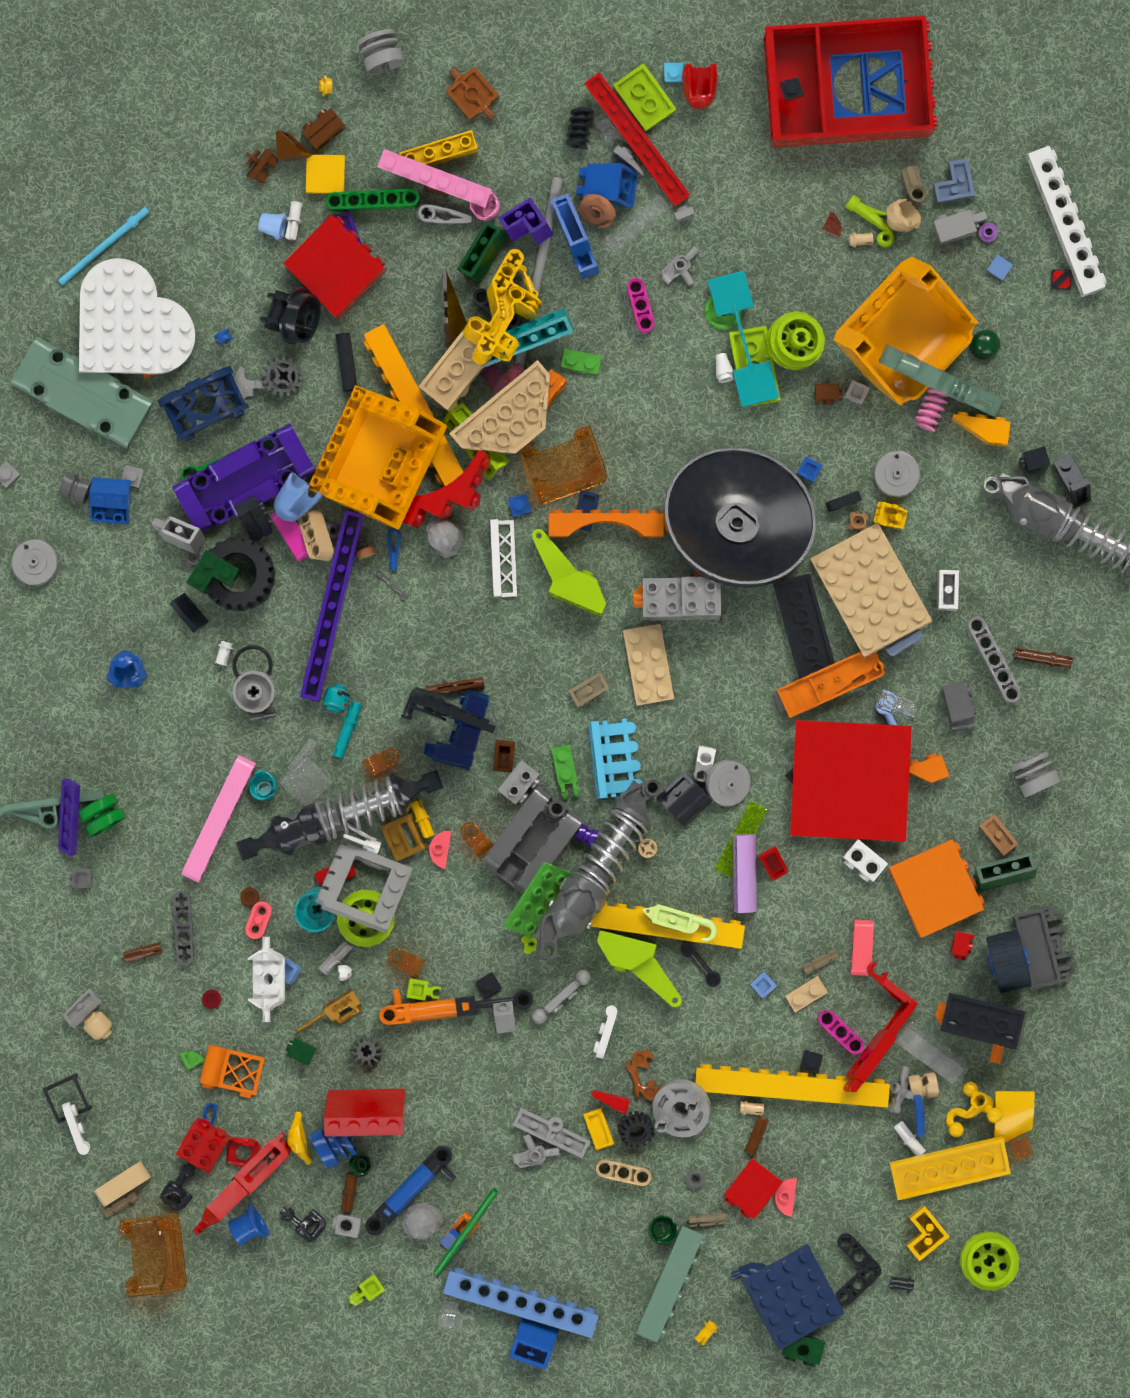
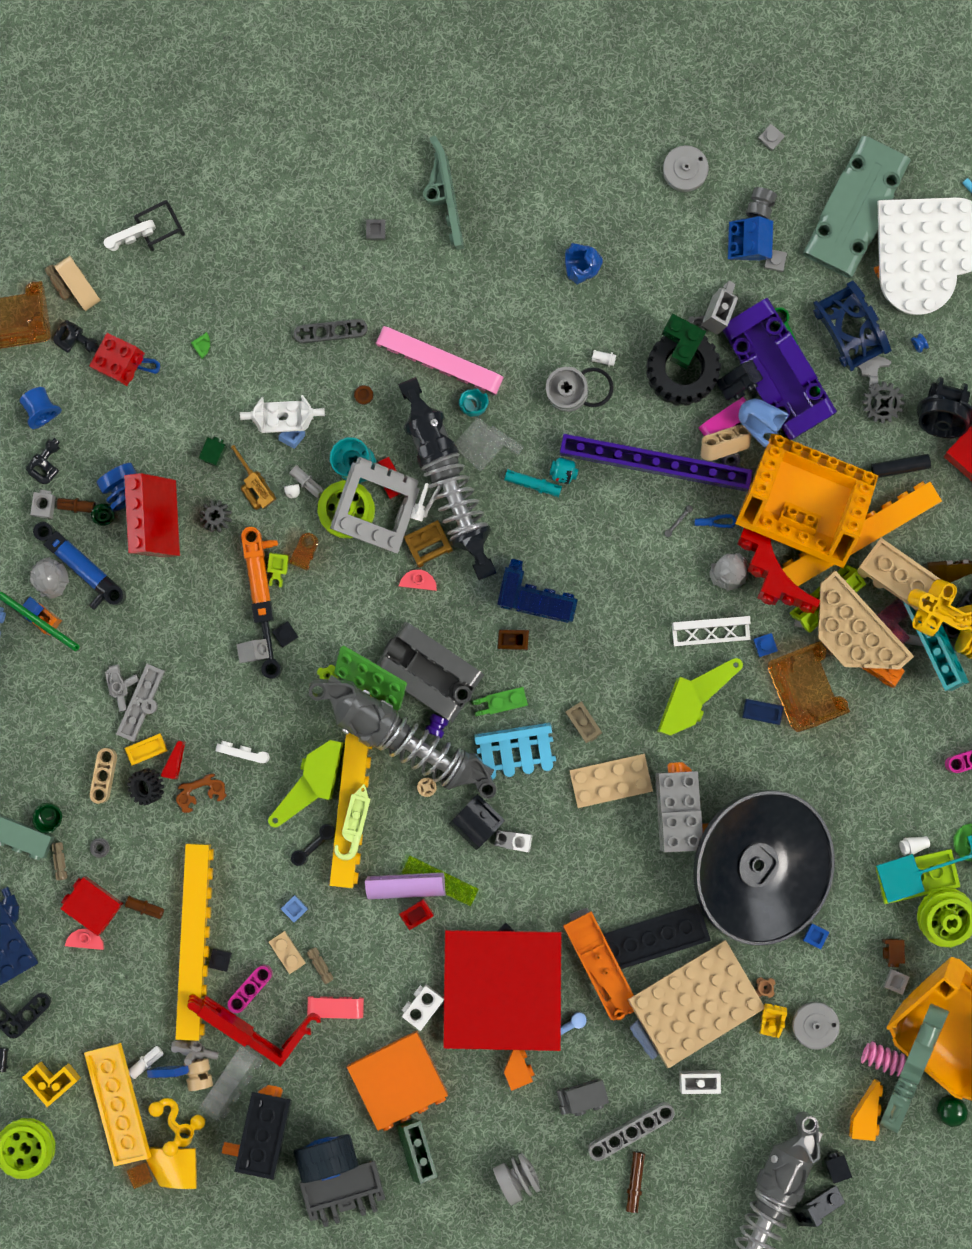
camera: 85 degrees right, 0 degrees up
(69, 817) = (434, 212): dark purple plate -> none
(82, 1008) = (247, 235): light grey plate -> none
(97, 1025) = (231, 251): tan head -> none
(102, 816) = (439, 244): green wheel -> none
(142, 952) = (304, 292): reddish brown axle -> none
(189, 612) = (642, 322): black plate -> none
(211, 999) = (261, 362): dark red tile -> none
(215, 1069) = (192, 368): orange piece -> none
(234, 1143) = (120, 407): red piece -> none
(244, 1182) = (82, 403): hinge -> none
(258, 920) = (341, 404): coral plate -> none
(261, 715) = (543, 398): dark grey pin -> none
(297, 1139) = (126, 451): yellow piece -> none
(365, 552) = (710, 493): nougat tile -> none
(378, 763) = (501, 515): clear orange piece -> none
(422, 819) = (447, 561): yellow axle -> none
(435, 703) = (559, 567): black plate -> none
(458, 686) = (579, 587): reddish brown pin -> none
(478, 841) = (426, 617): clear orange piece -> none
(519, 782) = (487, 656): light grey brick -> none
(581, 362) = (913, 700): bright green plate -> none
(581, 978) = (294, 726): light grey plate -> none
(644, 524) = (752, 770): orange arch -> none
(670, 1117) = (154, 828): light grey piece -> none
(728, 782) = (495, 865): light grey wheel -> none
(751, 1108) = (171, 901): tan pin -> none
(843, 501) = (785, 972): black beam -> none
(897, 705) = (581, 1034): clear plate -> none
(961, 945) = (341, 1108): red brick -> none
(998, 834) = (454, 1142): medium nougat plate -> none

